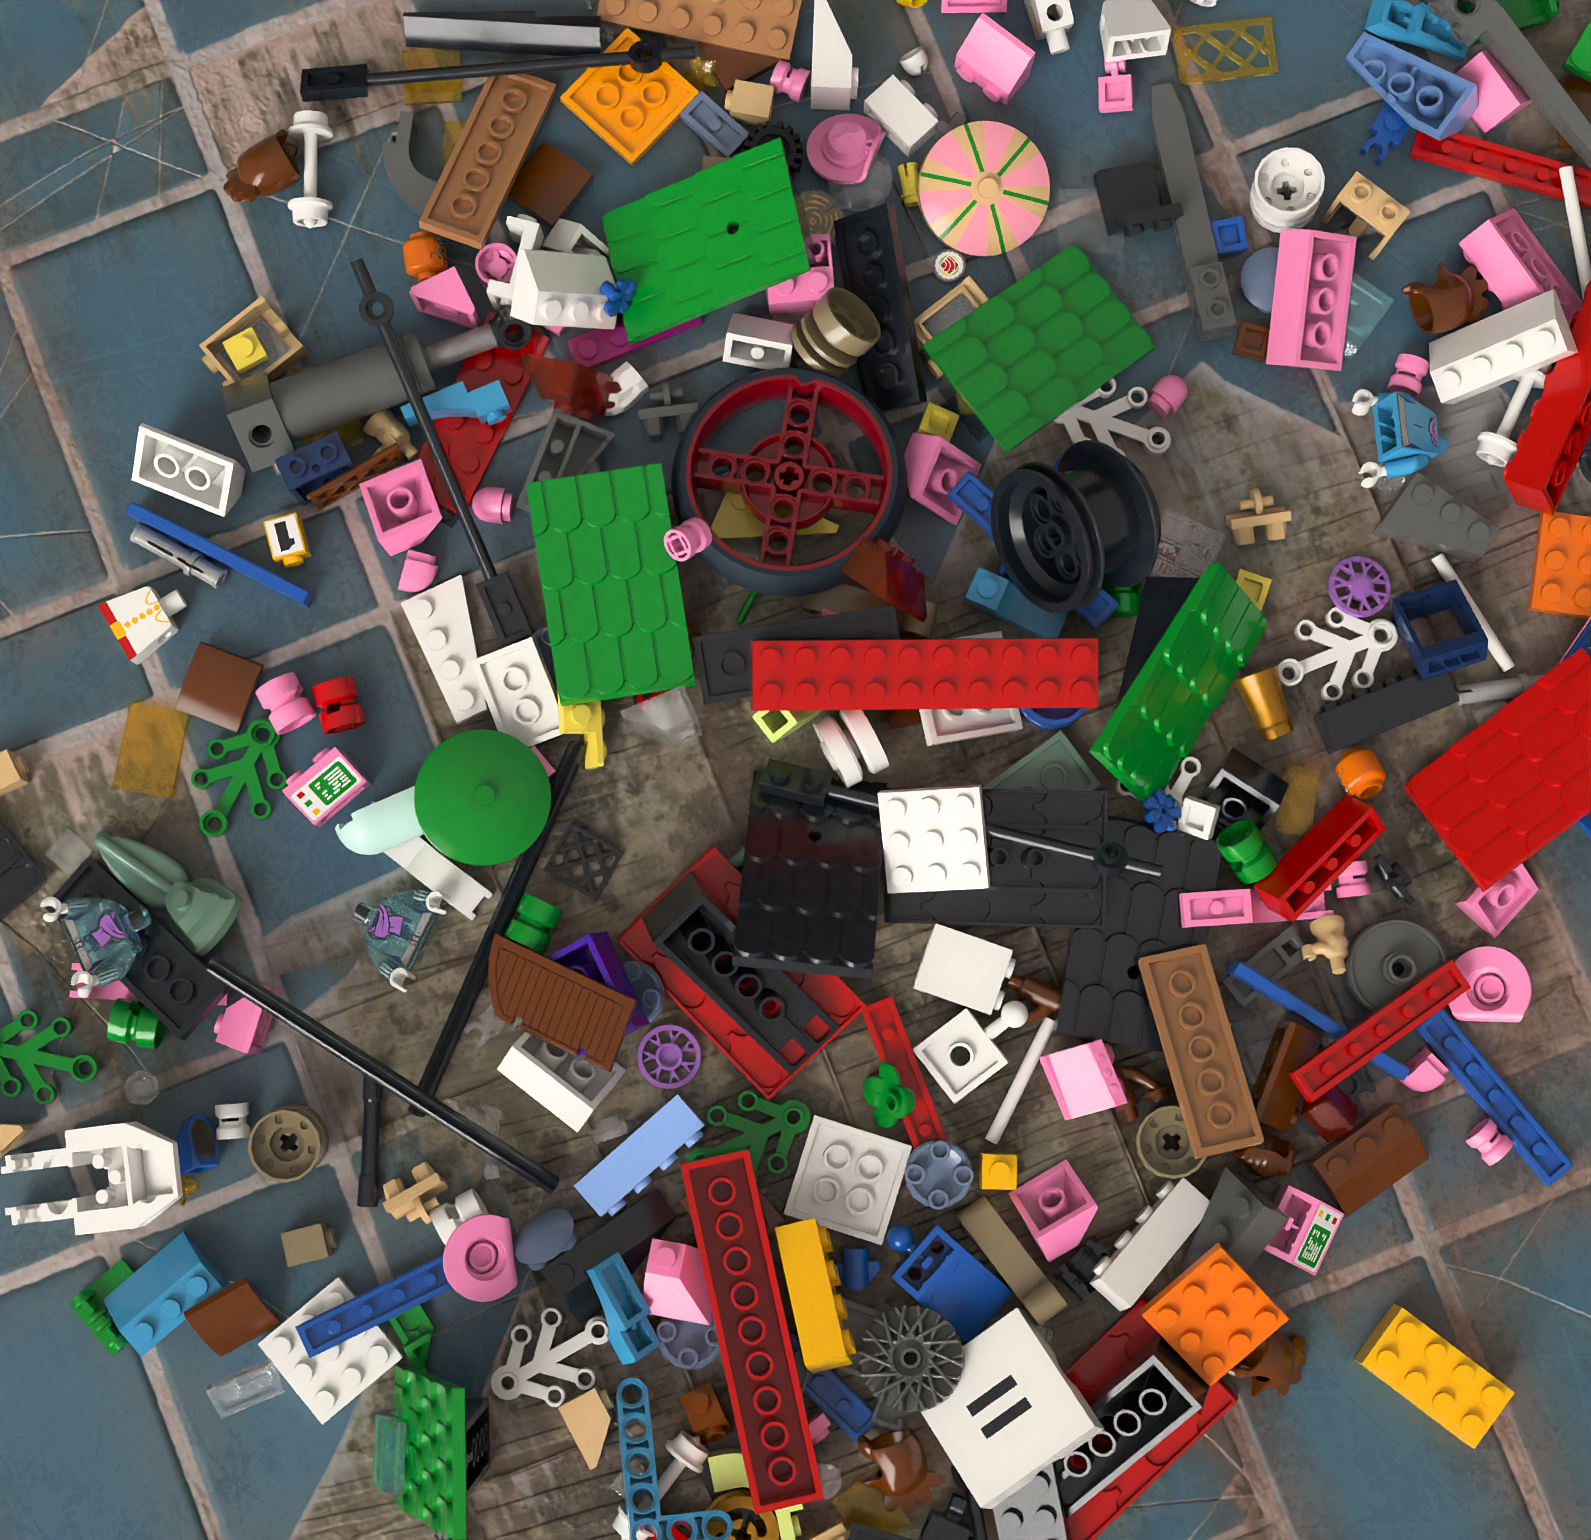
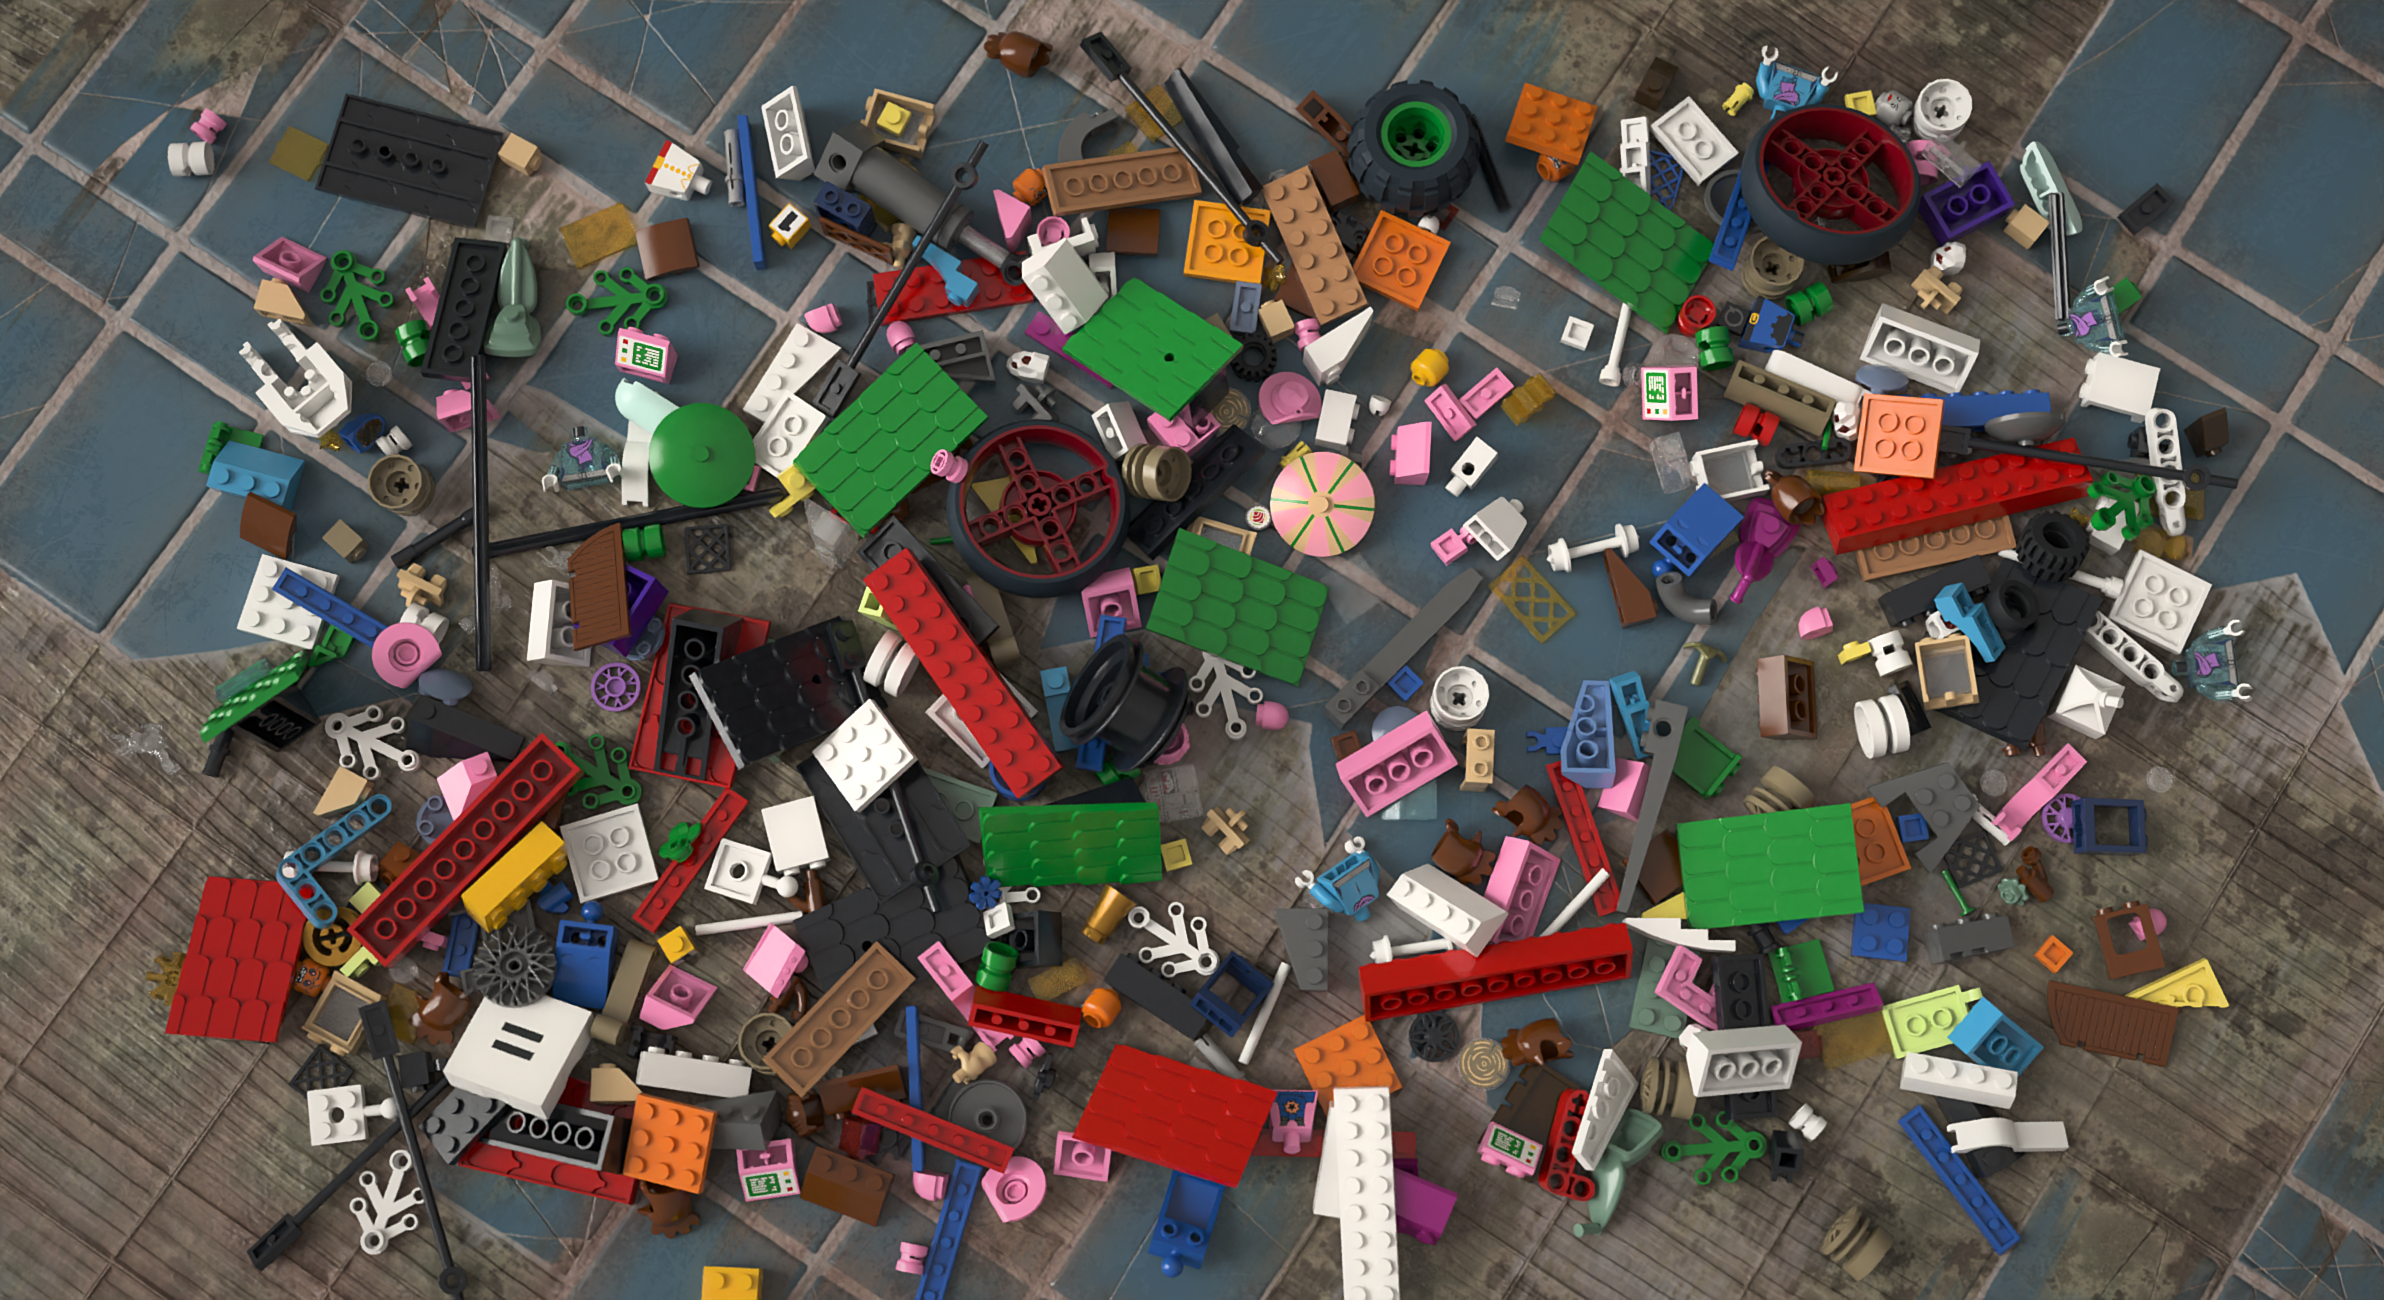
camera: 55 degrees right, 5 degrees down
(101, 936) = (454, 282): torso -> none
(245, 1388) = (229, 565): clear plate -> none
(286, 705) = (683, 295): bright pink wheel -> none
(311, 128) = (1065, 61): white piece -> none
(342, 694) = (703, 328): red wheel -> none
(401, 507) = (856, 280): bright pink slope -> none
(569, 385) = (1004, 330): clear red slope -> none
(618, 295) = (1082, 319): blue plant -> none
(624, 1309) = (430, 764): dark azure slope -> none
(639, 1155) = (538, 710): light blue brick -> none
(889, 576) = (1013, 610): clear red slope -> none
(938, 1174) = (649, 907): sand blue dish -> none
(1107, 1335) = (612, 1086): none -> tan slope
(1133, 200) = (1383, 604): black bracket -> none
(1359, 586) = (1229, 926): medium lavender wheel -> none
(1408, 374) = (1399, 865): bright pink wheel -> none
(1454, 203) = (1530, 815): none -> reddish brown piece

